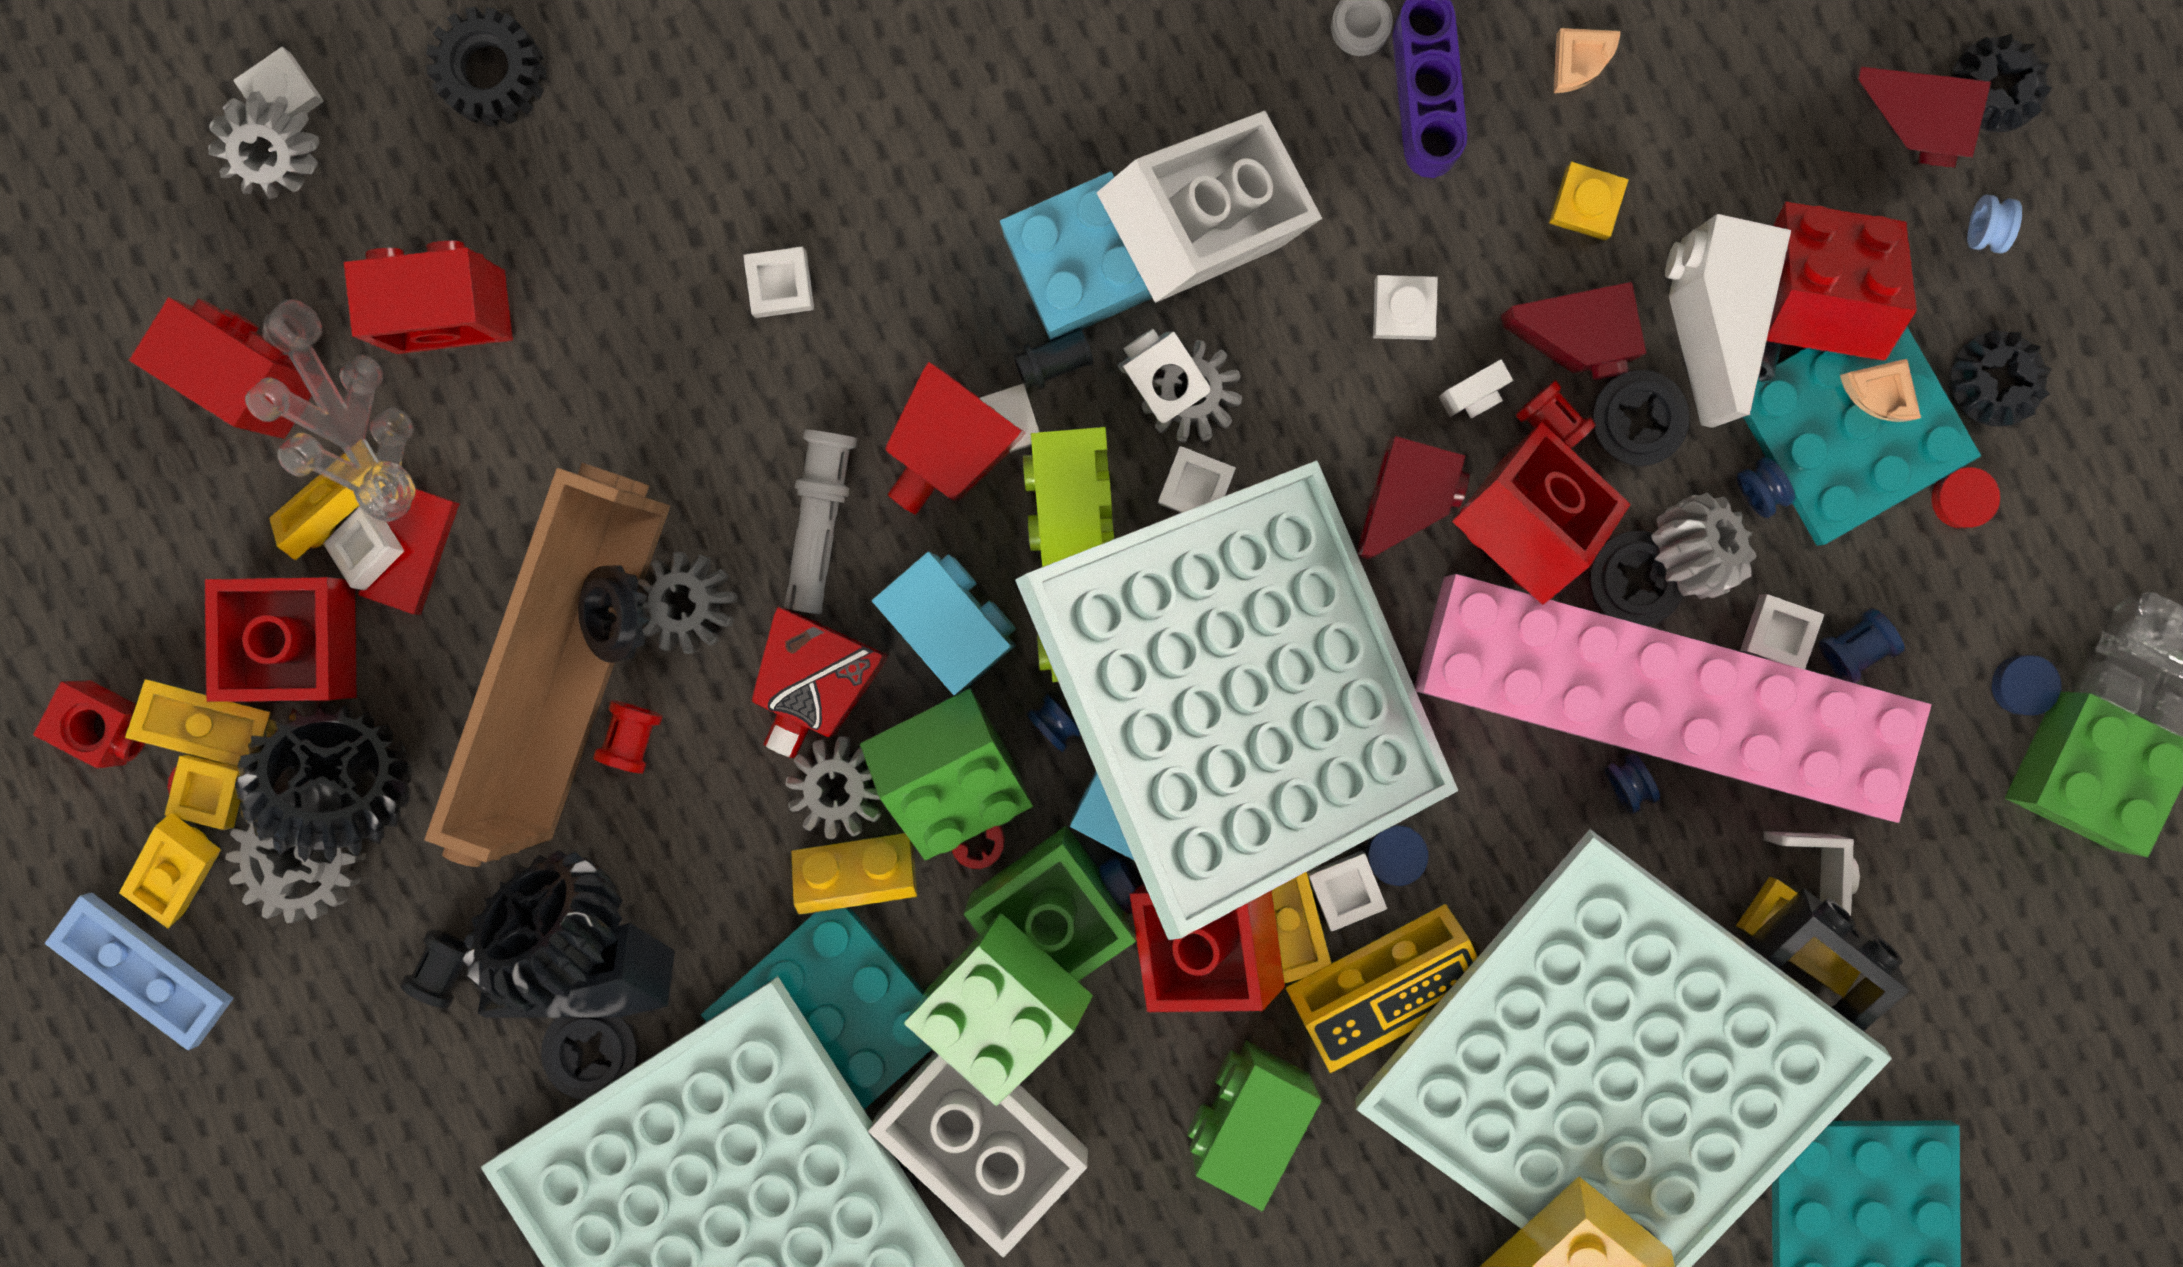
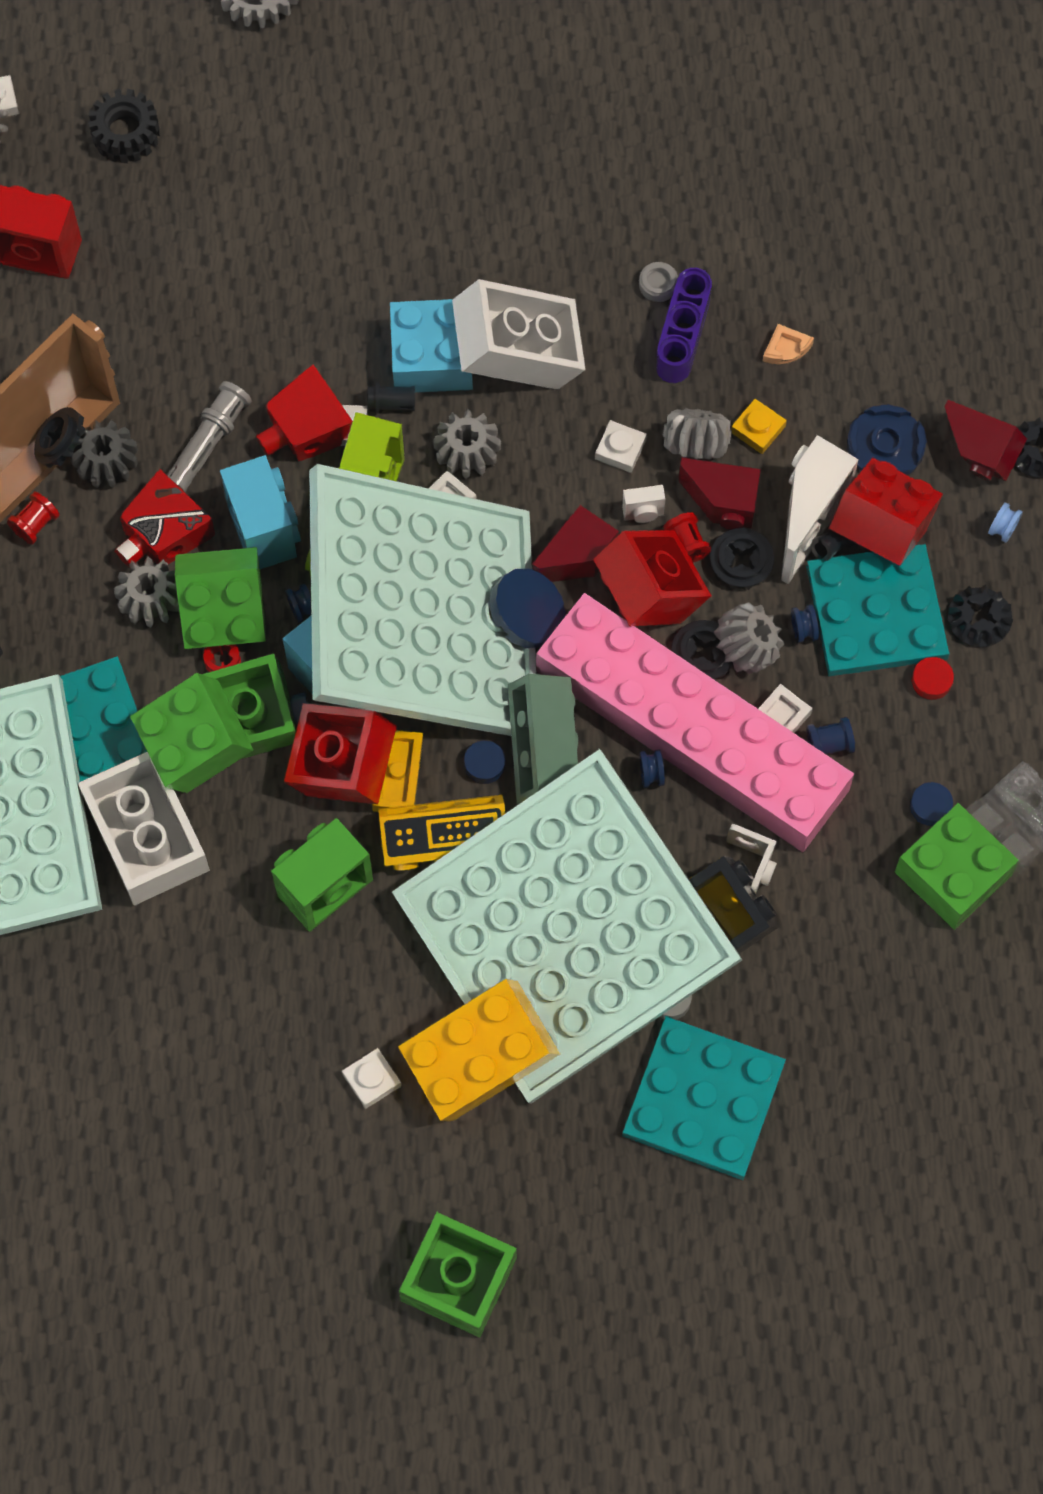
camera: 25 degrees right, 20 degrees down
(778, 282) = (243, 299): white plate -> none
(853, 873) = (136, 646): yellow plate -> none
(1150, 353) = (440, 412): white bracket -> none
(1347, 891) = (442, 769): white plate -> none
(1377, 618) = (526, 607): none -> dark blue tile
(1478, 810) = (541, 731): none -> sand green brick
(1517, 256) = (697, 433): none -> light grey gear
(1761, 172) = (902, 448): none -> dark blue tile
(1884, 391) = (896, 588): light nougat tile -> none

